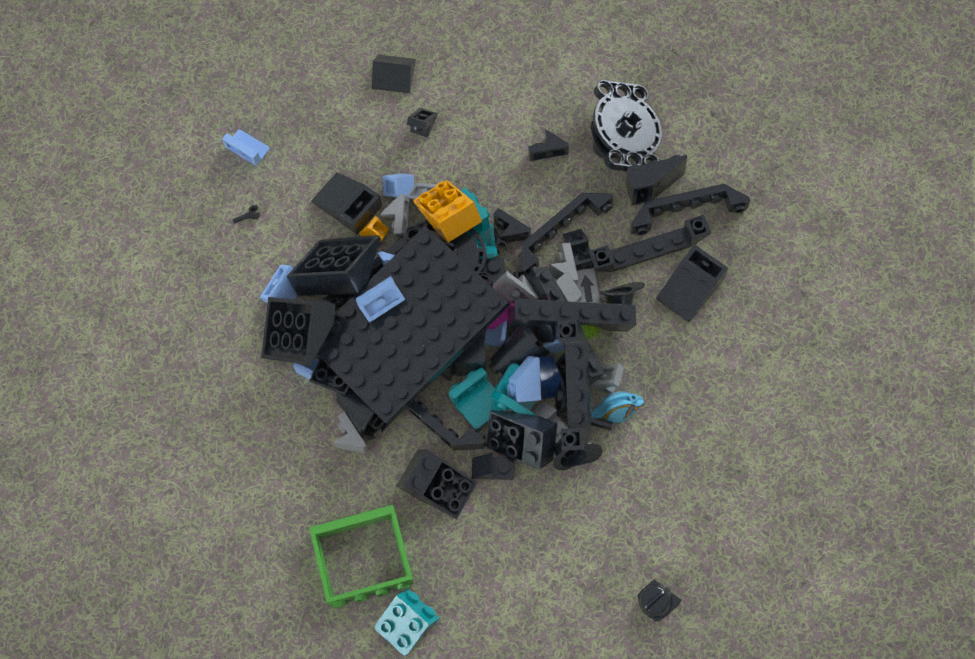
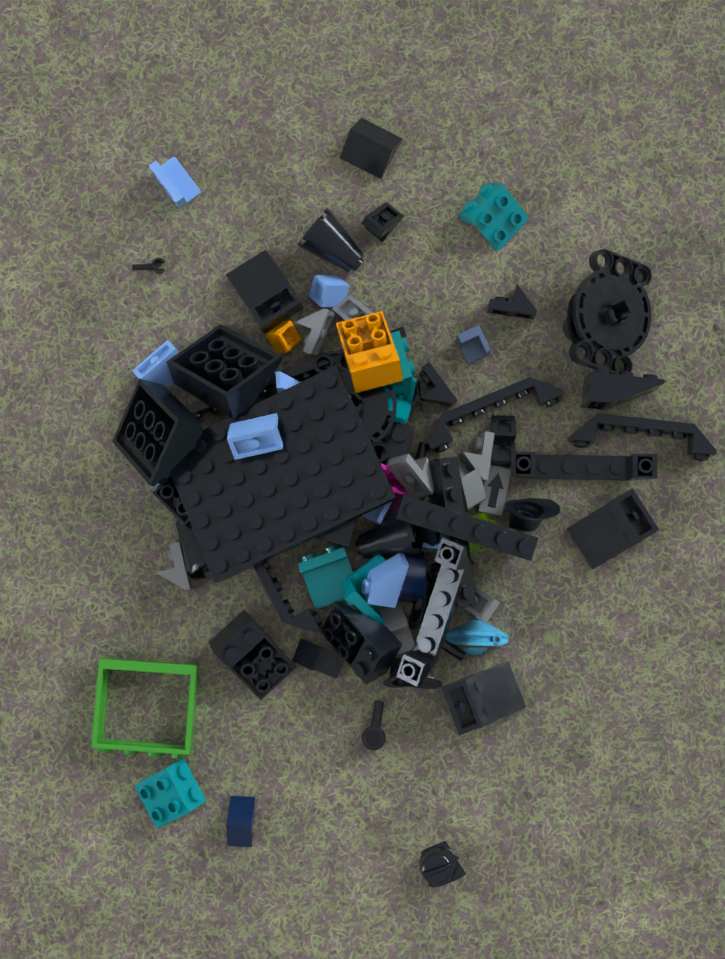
camera: 20 degrees right, 15 degrees up
(388, 148) = (332, 243): none -> black cone
(476, 624) = (240, 821): none -> dark blue slope
(508, 87) = (494, 214): none -> teal bracket
(528, 186) = (473, 344): none -> sand blue panel
(562, 514) = (373, 736): none -> black plate
(638, 450) = (483, 697): none -> black slope

